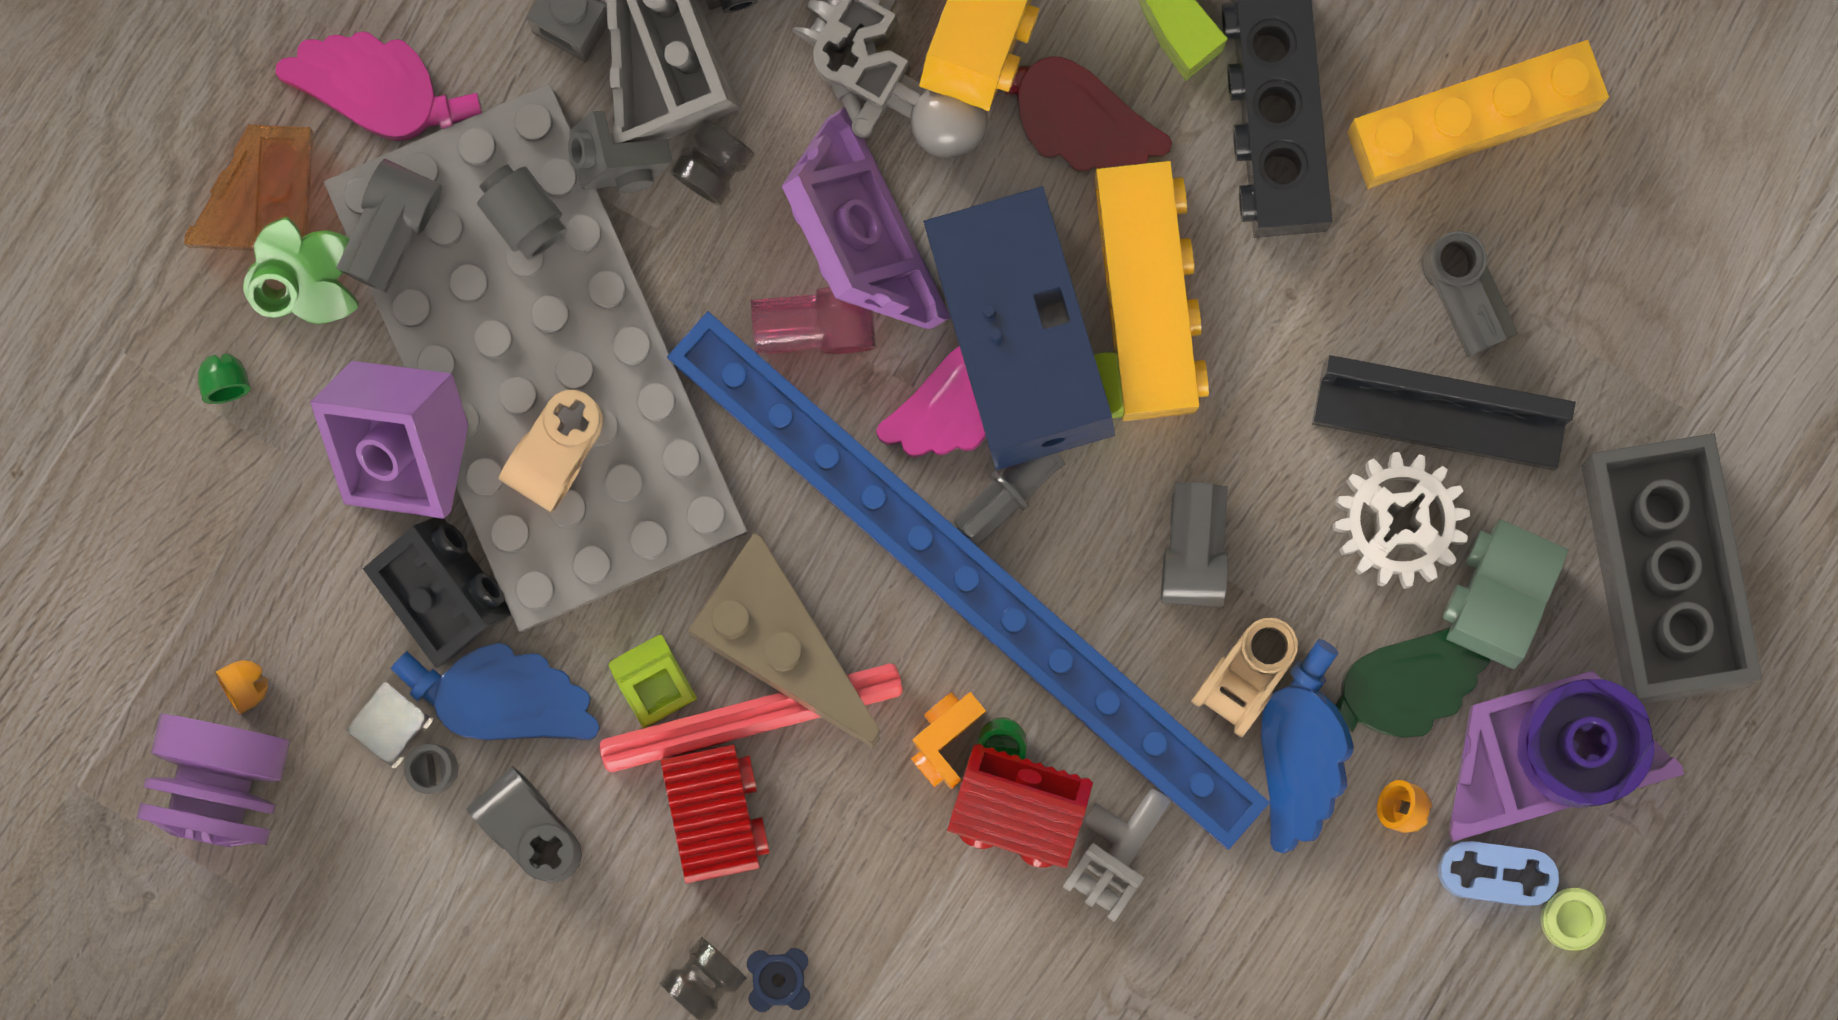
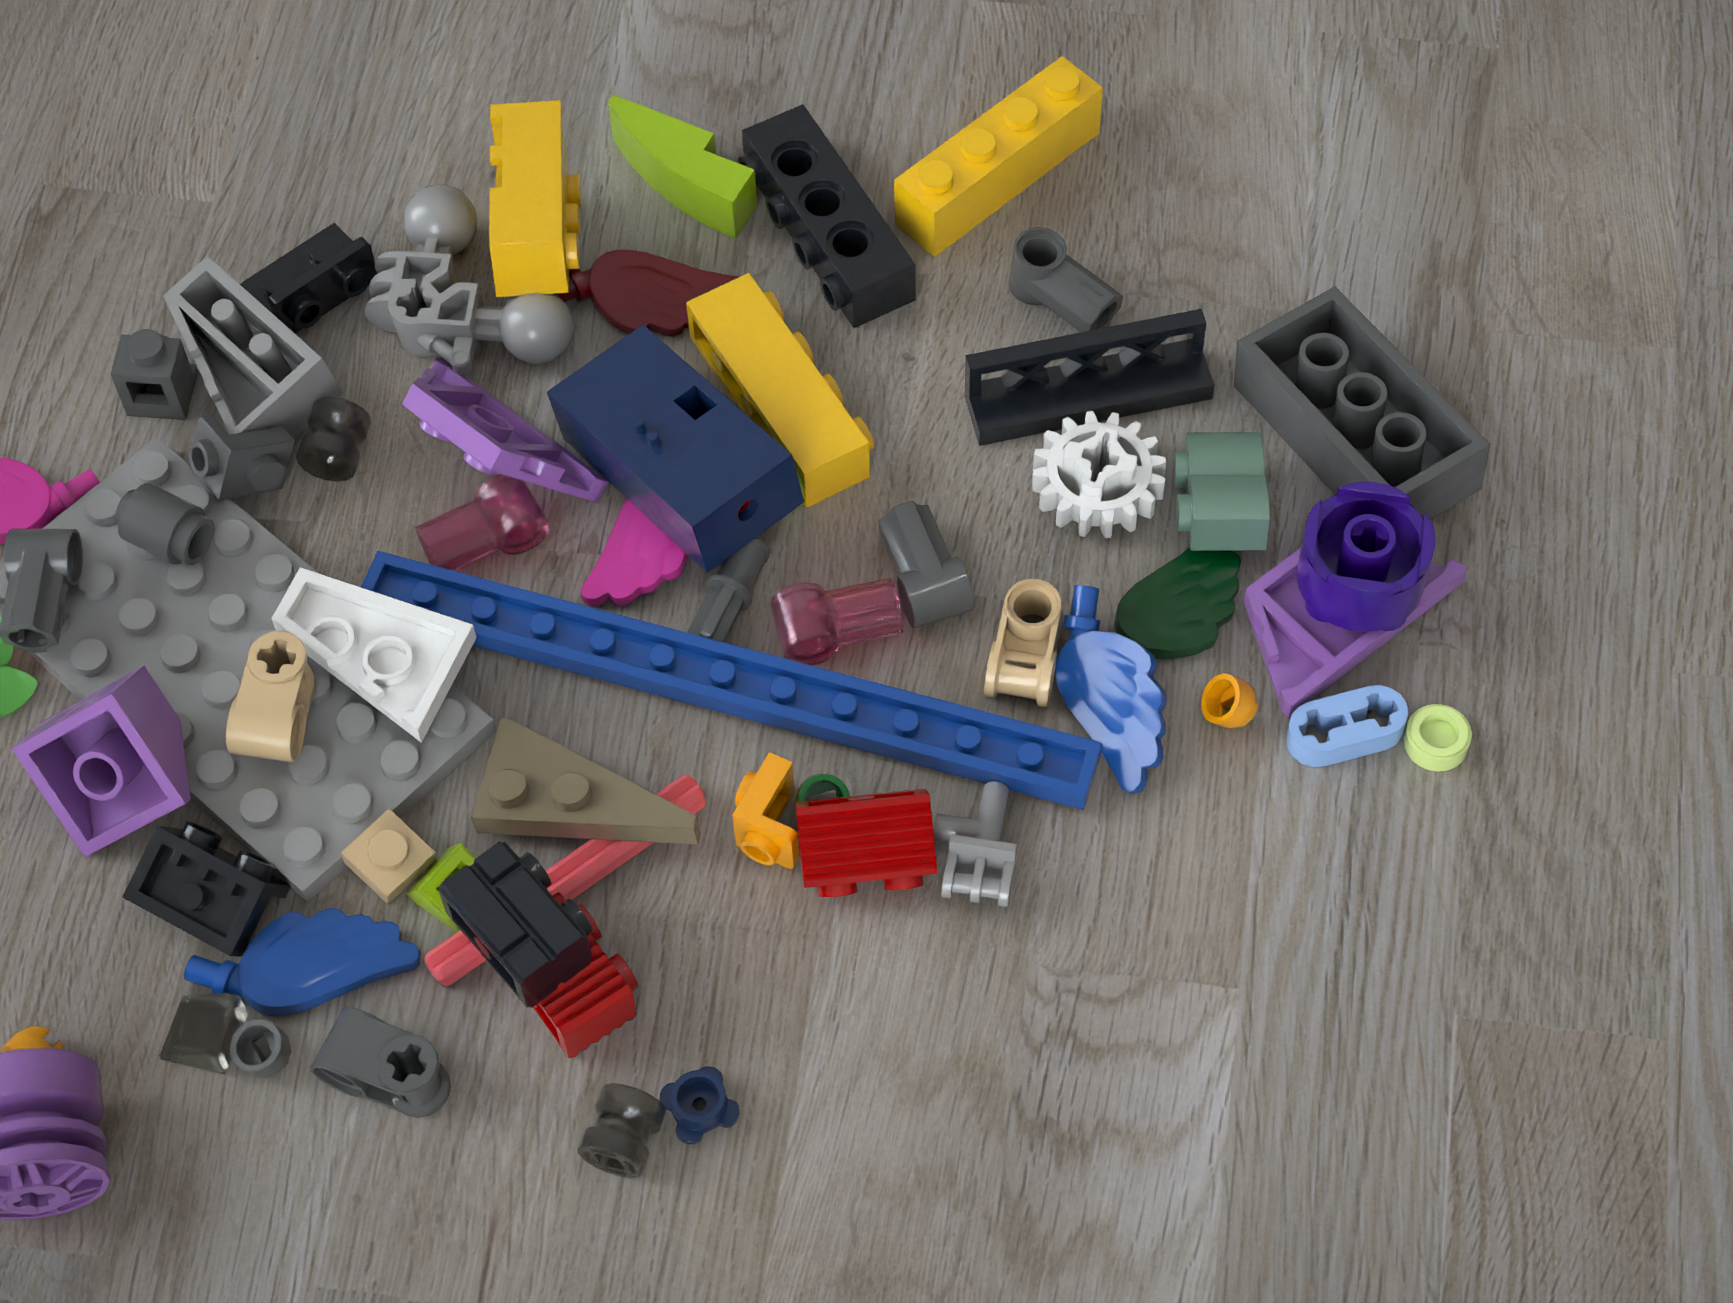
camera: 20 degrees left, 25 degrees down
(605, 627) = (388, 856): none -> tan plate
(668, 426) = (377, 645): none -> white wing
(683, 775) = (518, 922): none -> black brick
(1077, 562) = (819, 621): none -> clear pink piece

